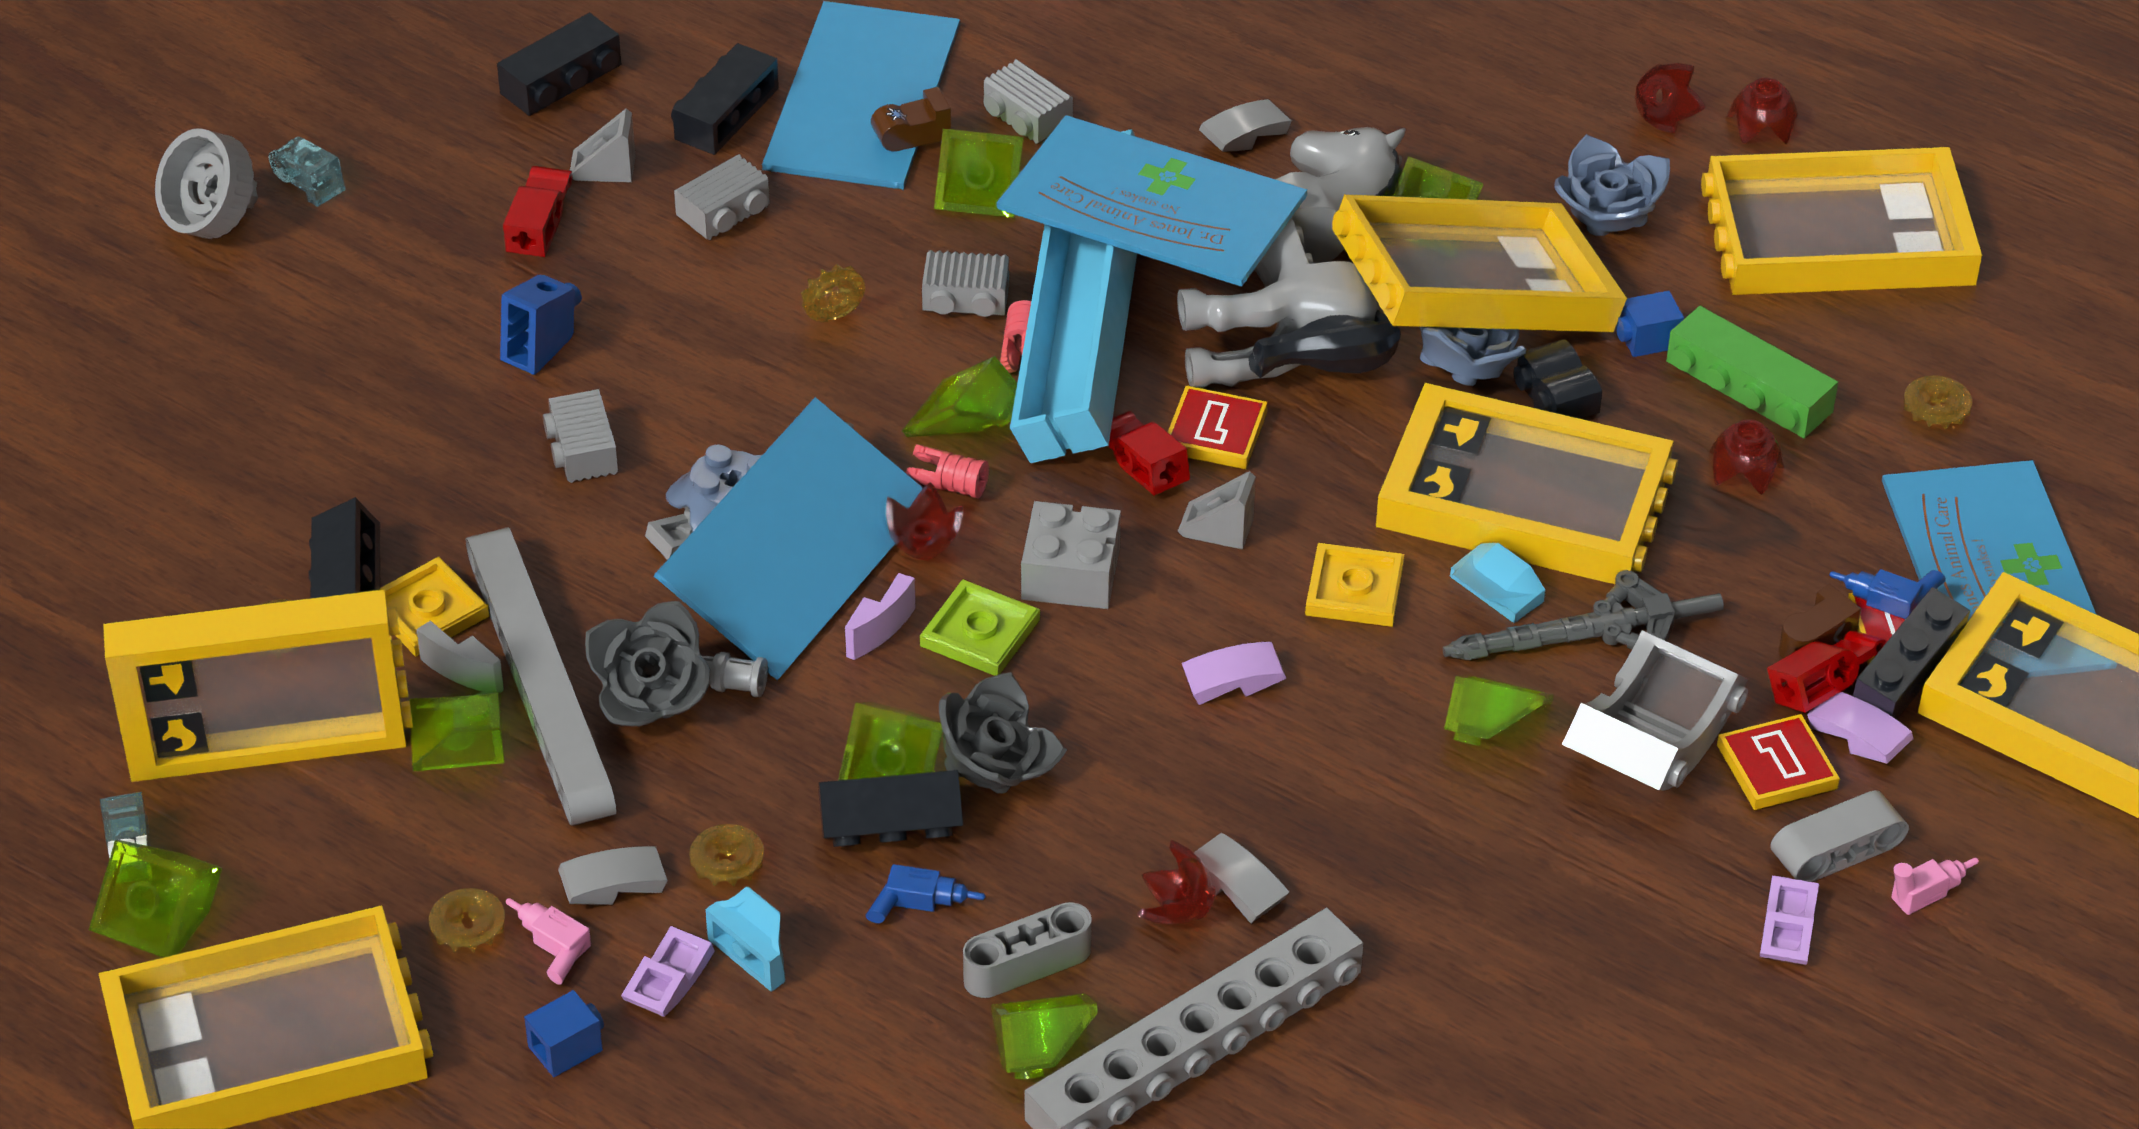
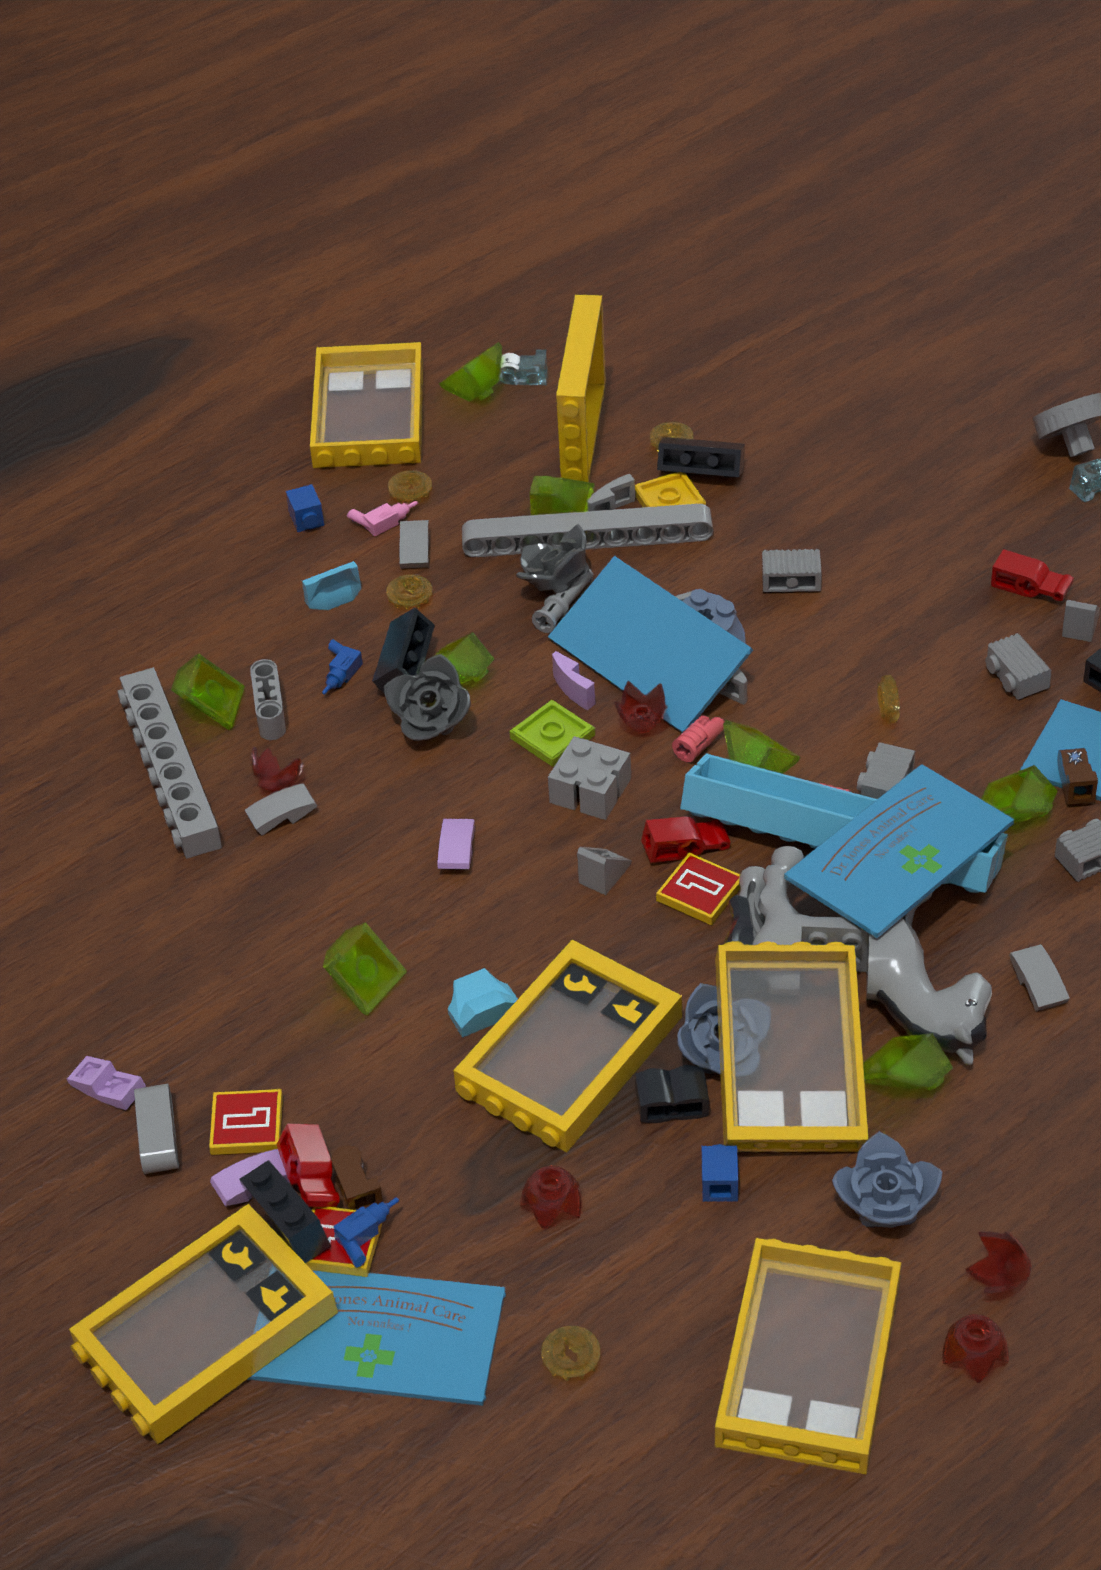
camera: 110 degrees right, 0 degrees up
(536, 321) = (902, 556): blue torso -> none
(670, 973) = (329, 554): lavender slope -> none
(1354, 584) = (515, 930): yellow tile -> none
(1606, 620) = (418, 1058): dark grey bar -> none
(1660, 714) = (301, 1048): light grey window -> none
(1752, 371) = (641, 1224): bright green brick -> none
(1927, 882) = (93, 1164): bright pink piece -> none

